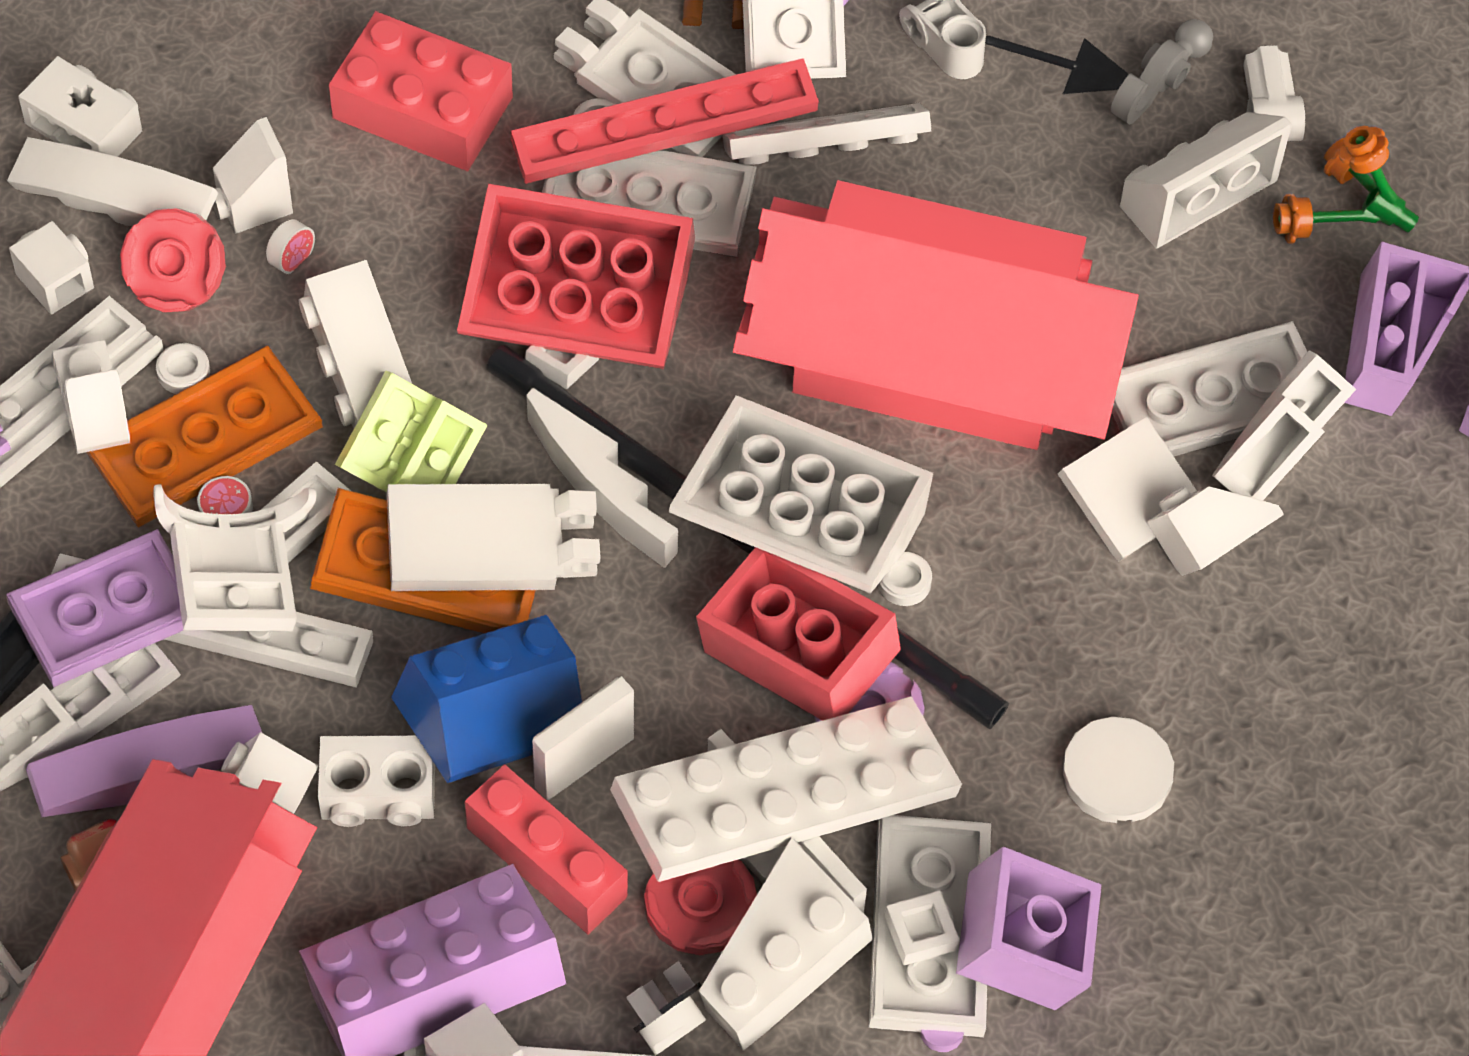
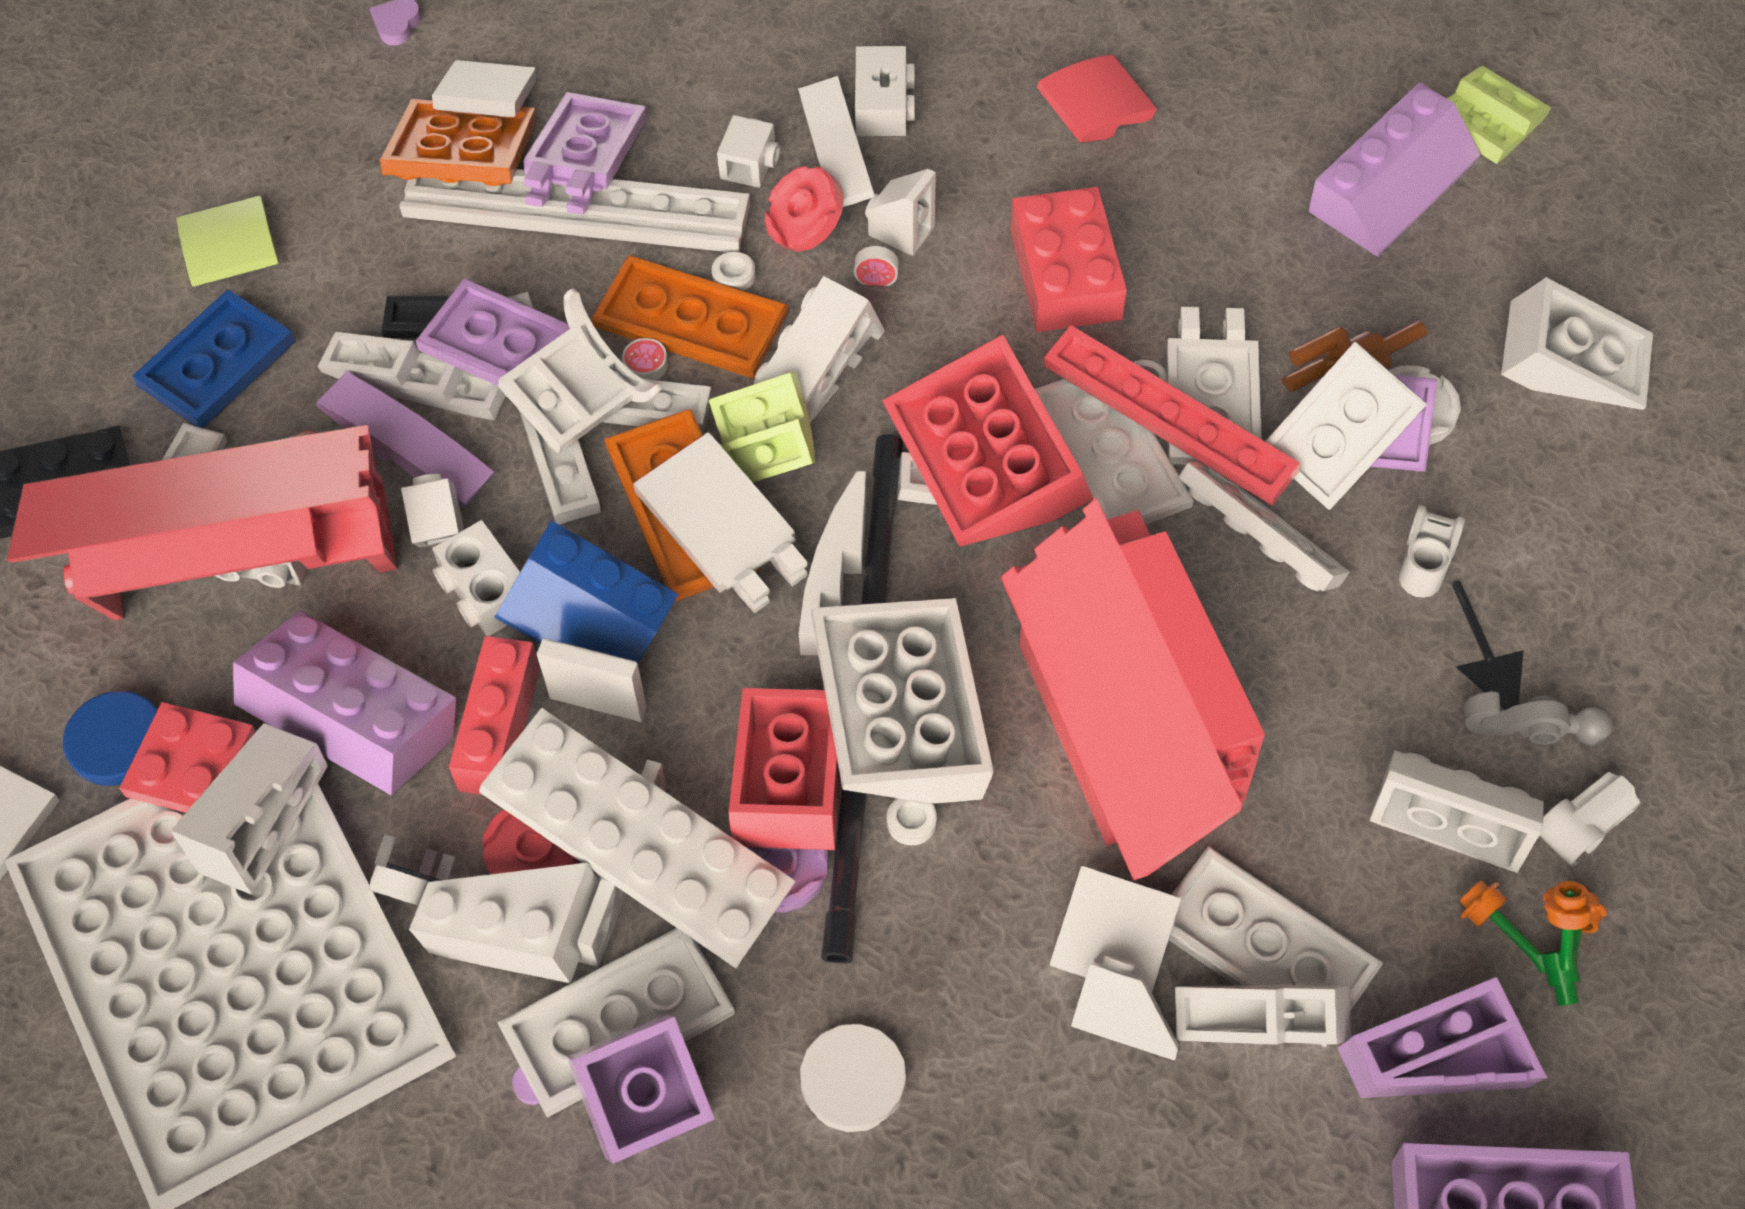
camera: 60 degrees right, 0 degrees up
(91, 396) = (655, 229): white slope -> none
(921, 928) = (590, 1008): white plate -> none

